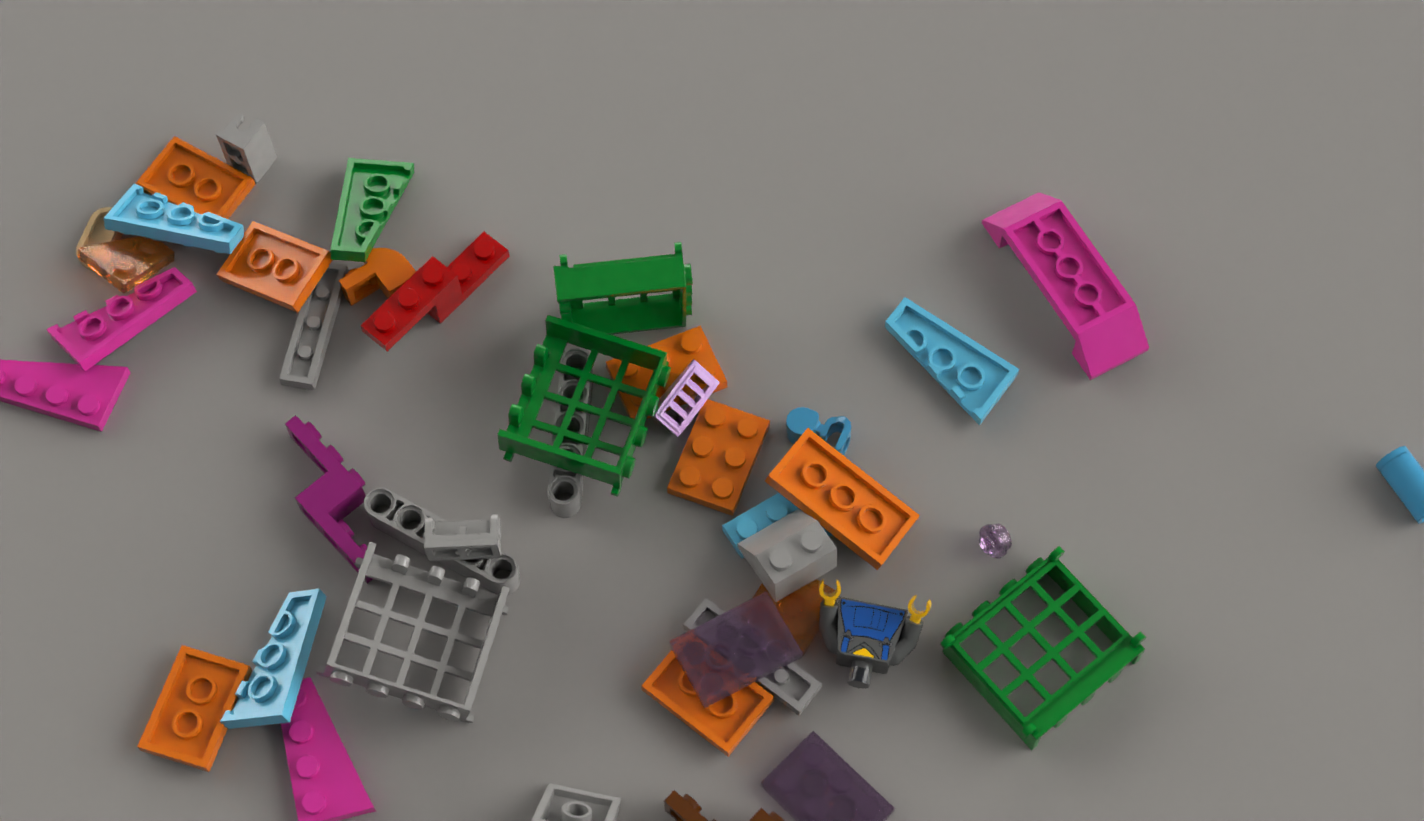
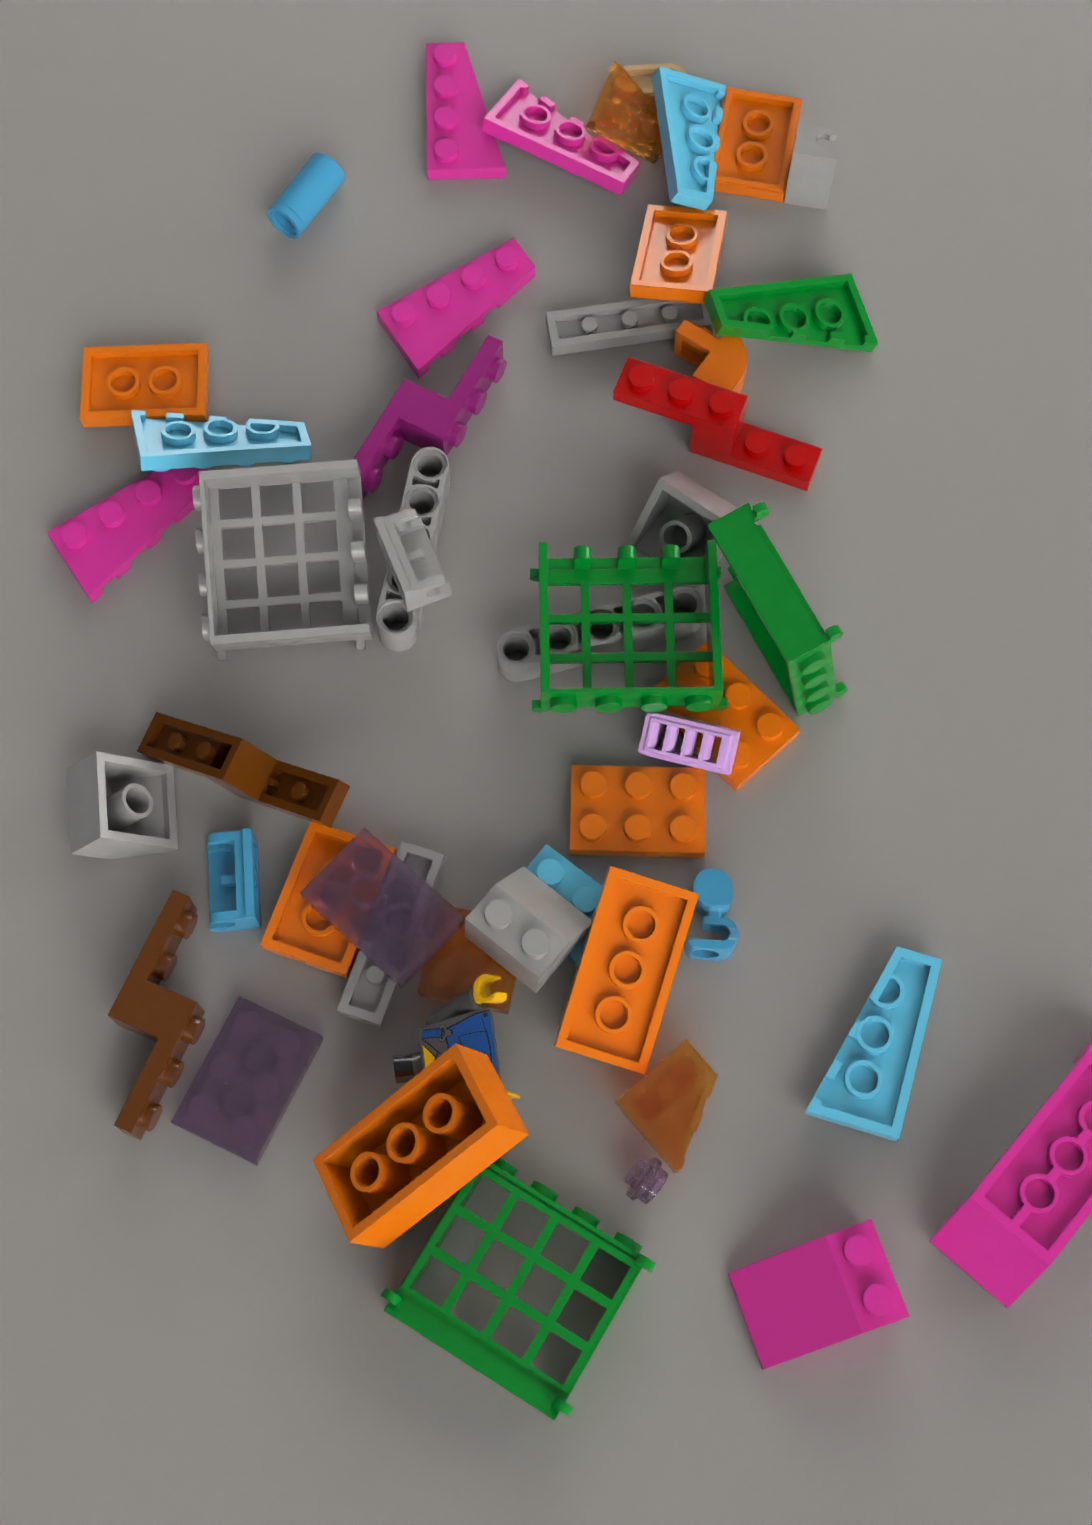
camera: 70 degrees right, 5 degrees up
(76, 525) = (306, 195): none -> dark azure pin
(234, 453) = (445, 309): none -> dark pink wing
(507, 343) = (678, 516): none -> light grey slope
(582, 720) = (244, 769): none -> reddish brown bracket
(667, 760) = (233, 881): none -> dark azure hinge
(932, 672) = (419, 1147): none -> orange brick
(943, 507) = (670, 1102): none -> clear orange wing
(1106, 457) = (817, 1294): none -> dark pink slope

